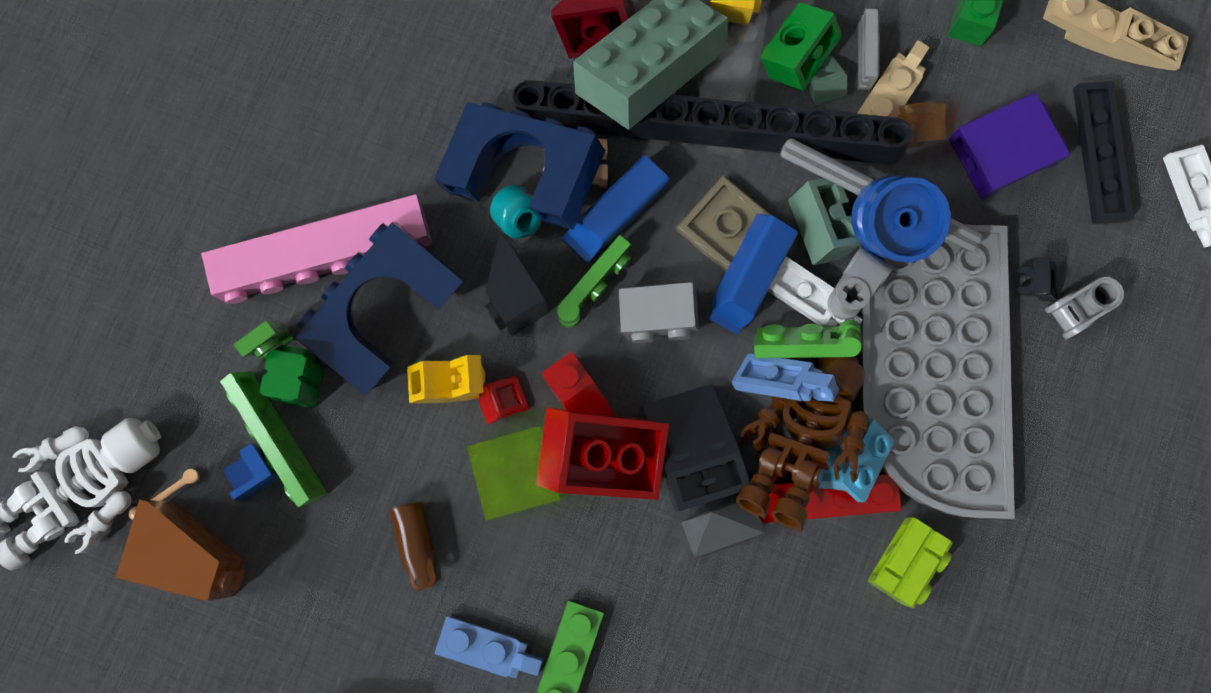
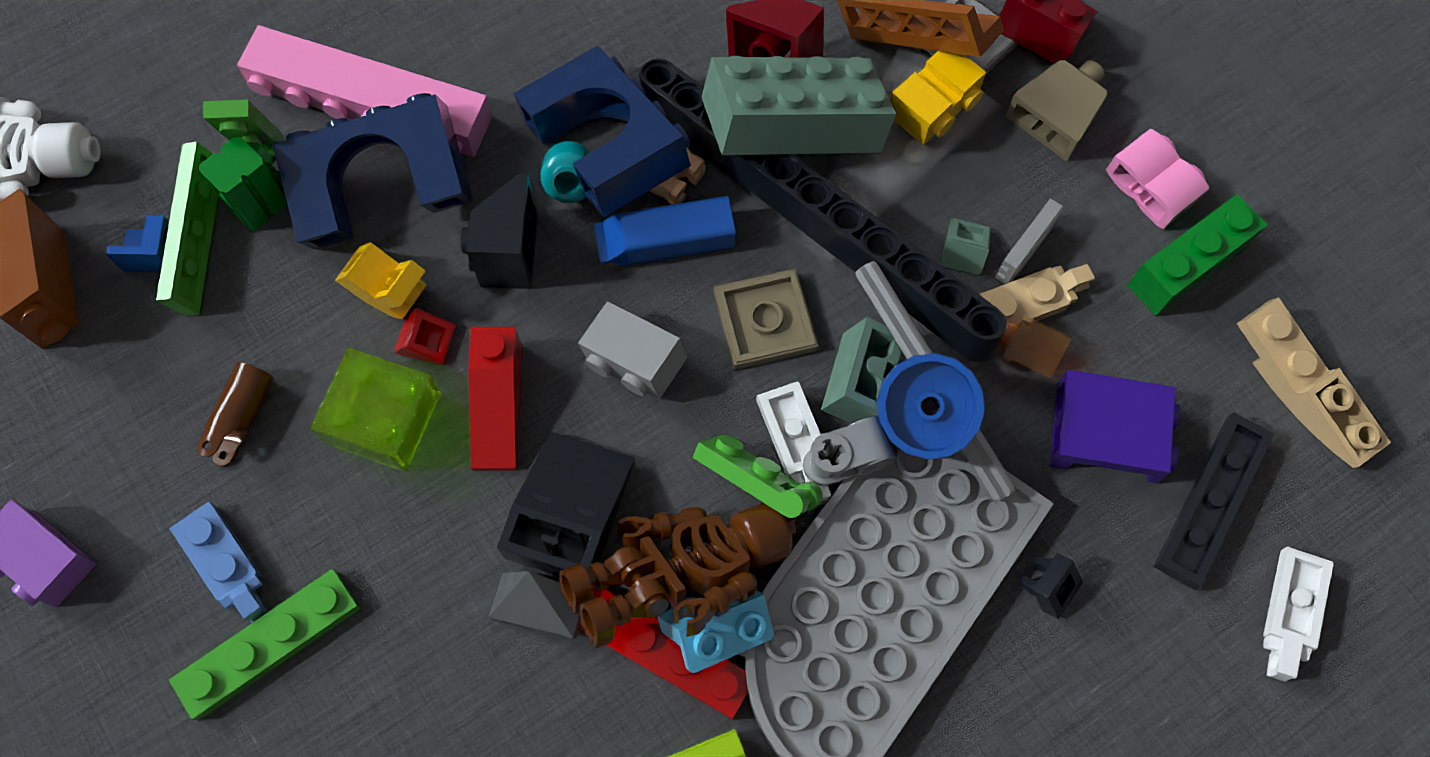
camera: 35 degrees right, 10 degrees down
(189, 477) = (93, 216): light nougat hinge -> none
(593, 282) = (591, 284): bright green plate -> none
(601, 454) = (463, 439): red brick -> none
(751, 272) = (749, 374): blue piece -> none
(784, 379) = (703, 496): medium blue hinge -> none
(801, 46) = (960, 195): green brick -> none
(1081, 309) = (1073, 642): light grey piece -> none

